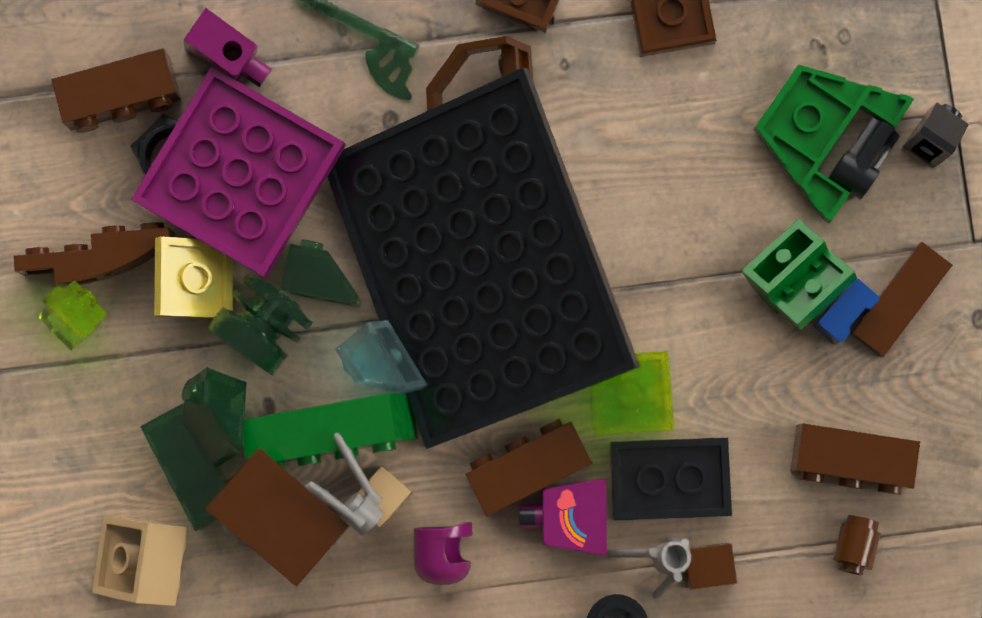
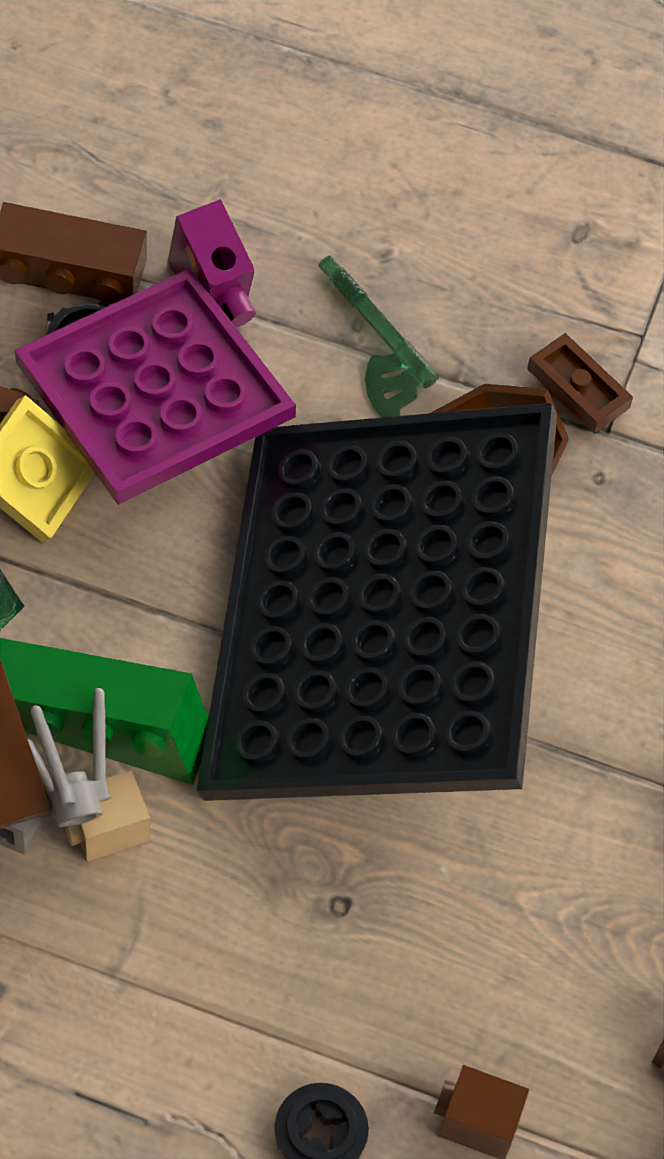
camera: 20 degrees right, 25 degrees down
(260, 324) = (91, 543): clear green wheel -> none
(315, 275) = (176, 542): clear green slope -> none
(379, 359) = (201, 643): clear light blue slope -> none
(429, 555) = (139, 922): magenta helmet -> none
(527, 466) = (312, 876): reddish brown brick -> none
(570, 517) = (335, 960): magenta torso -> none
(635, 400) = (489, 852): clear neon green brick -> none
(668, 558) = (435, 1053): light grey plant -> none
(670, 478) = (488, 983): black plate -> none

